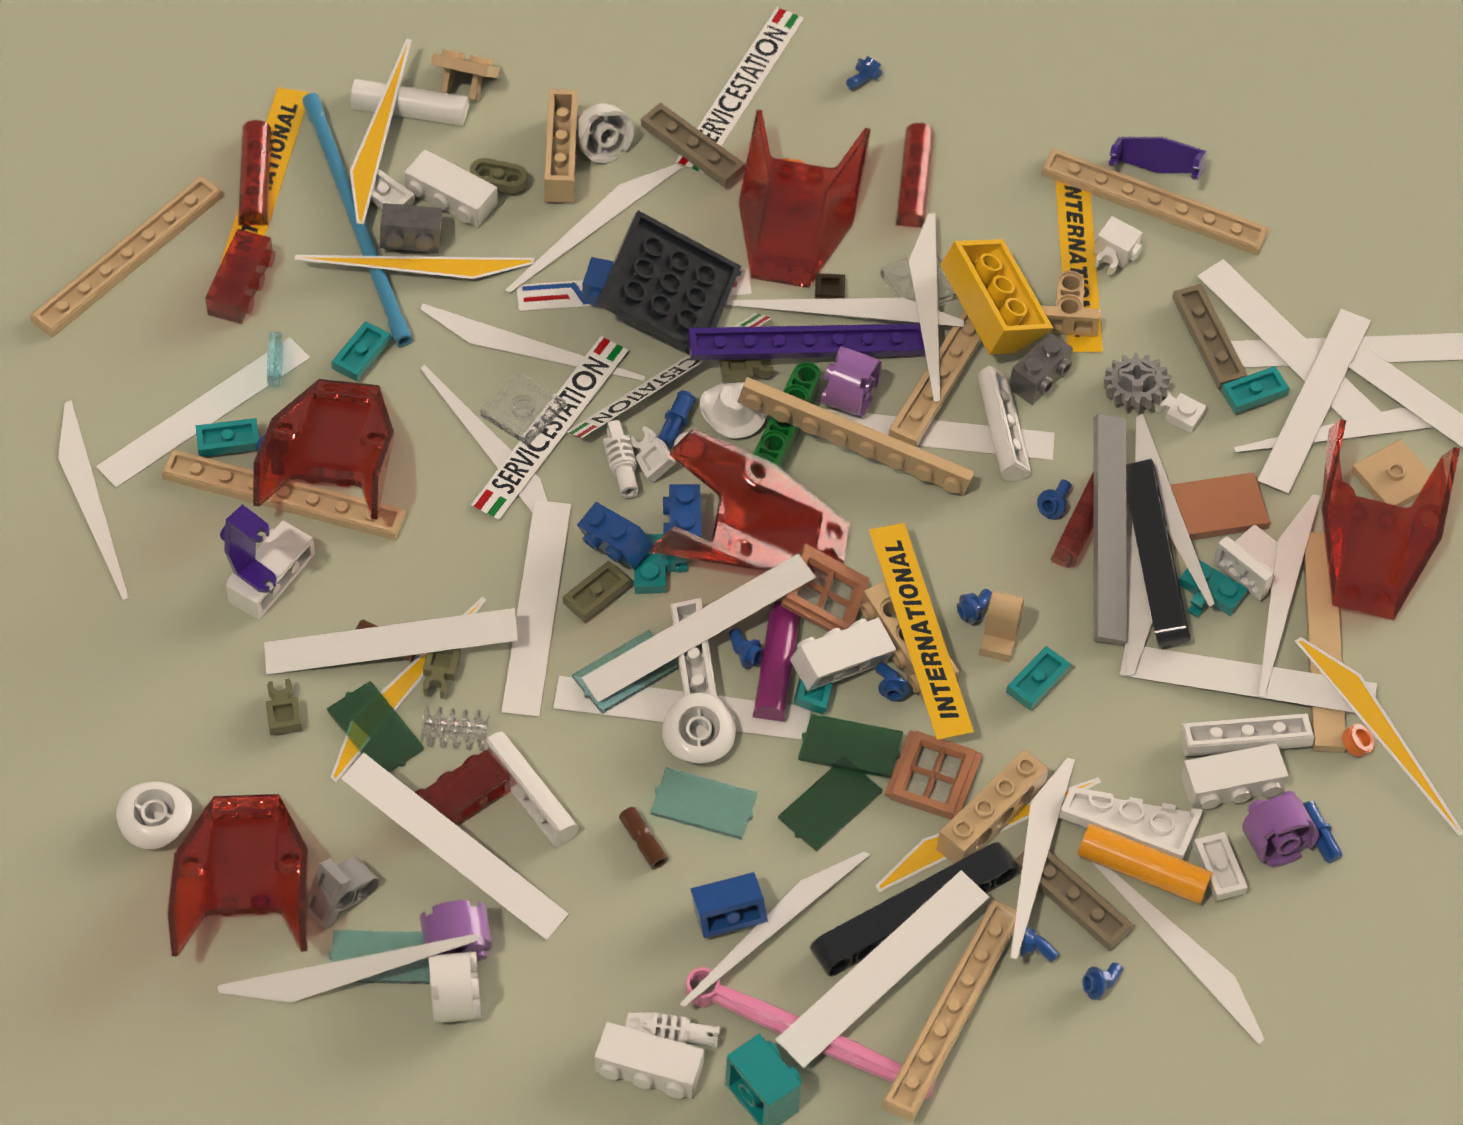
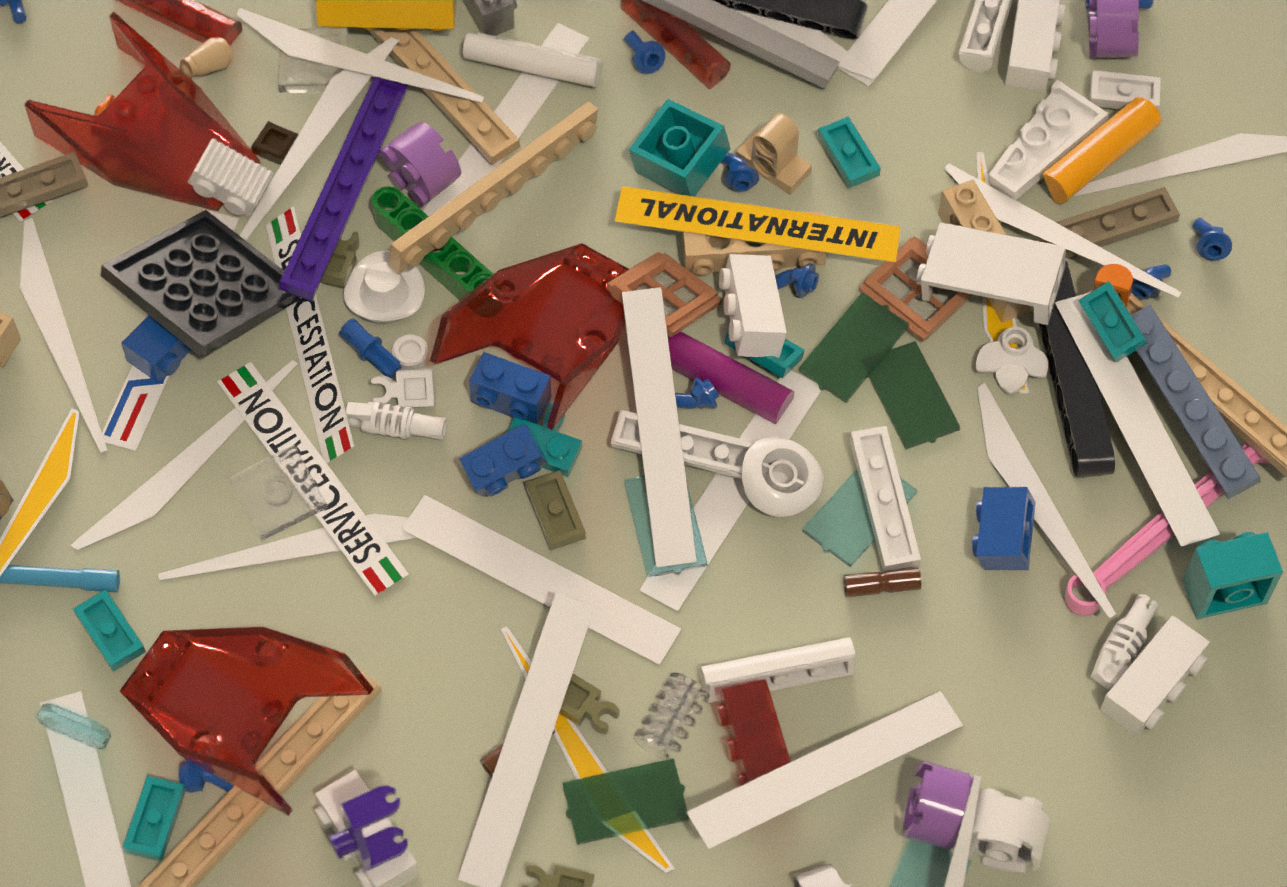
camera: 65 degrees left, 5 degrees up
(717, 811) = (885, 498): none -> white plate
(772, 267) = (230, 178): none -> white brick
(876, 211) = (207, 58): none -> tan cone
(895, 865) = (1012, 364): none -> white plate
(917, 1003) = (1193, 407): none -> sand blue plate
(958, 914) = (1113, 321): none -> teal plate
(963, 813) = (993, 267): none -> white panel
(965, 552) = (679, 148): none -> teal brick
(1001, 910) = (1119, 277): none -> orange brick

